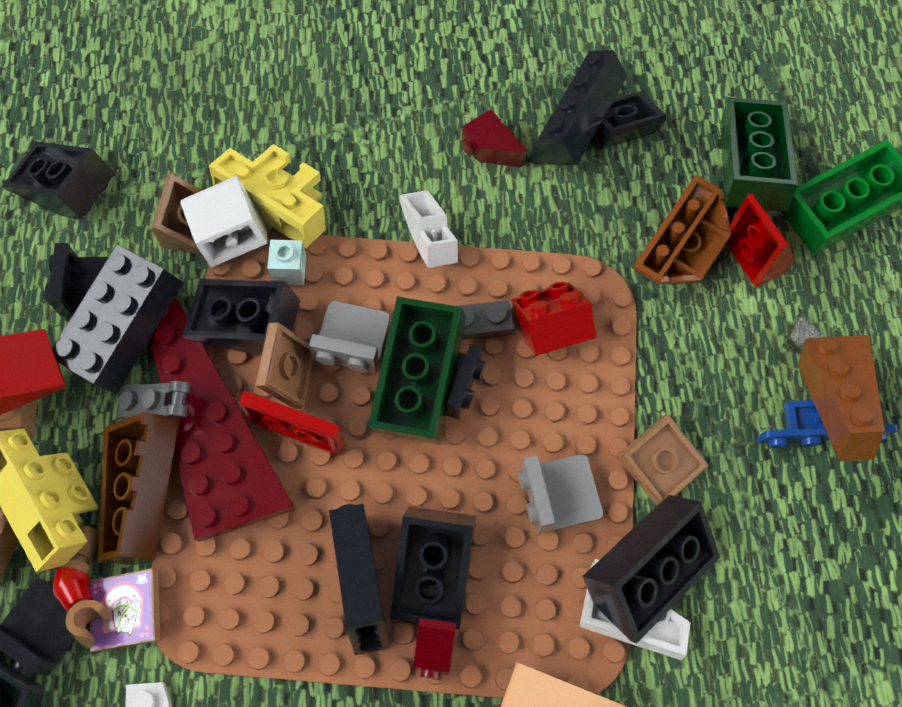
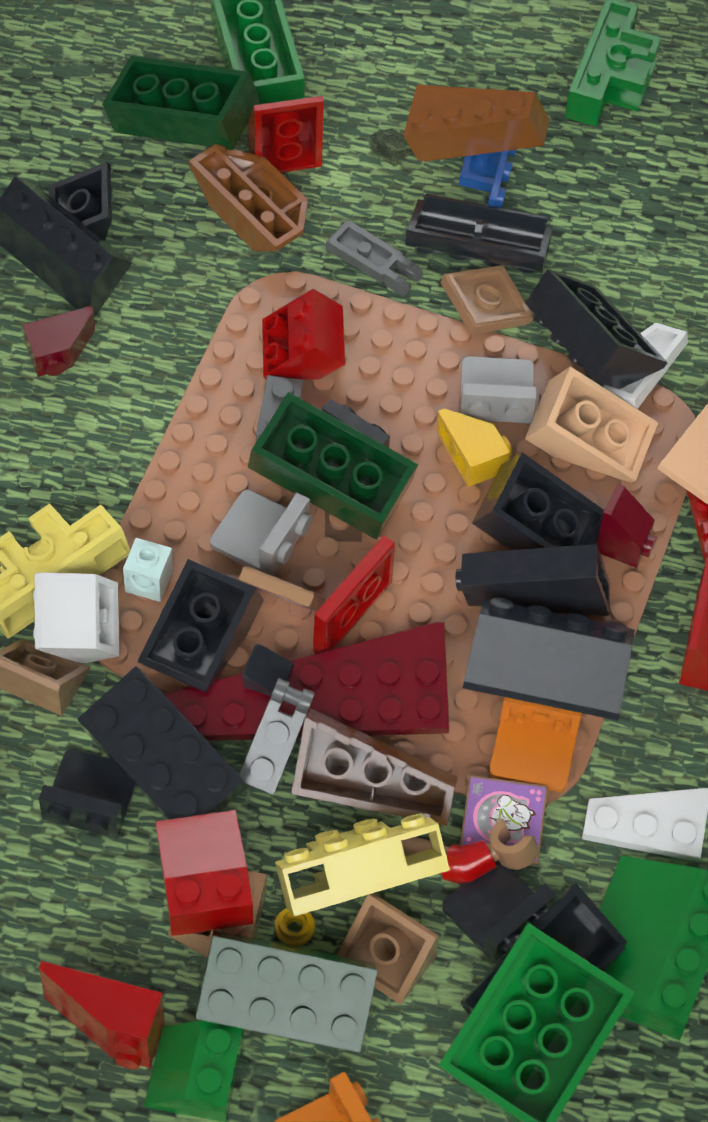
camera: 75 degrees left, 10 degrees down
(195, 618) = (534, 744): none -> orange bracket
(208, 375) = (265, 669): none -> black slope
(262, 609) = (550, 658): none -> slope
(429, 229) = (148, 428): white slope -> none
(488, 488) = (473, 445): none -> yellow slope
(545, 591) = (591, 427): none -> light nougat slope
(672, 351) = (373, 257): none -> dark grey hinge
(729, 436) = (480, 233): none -> black container

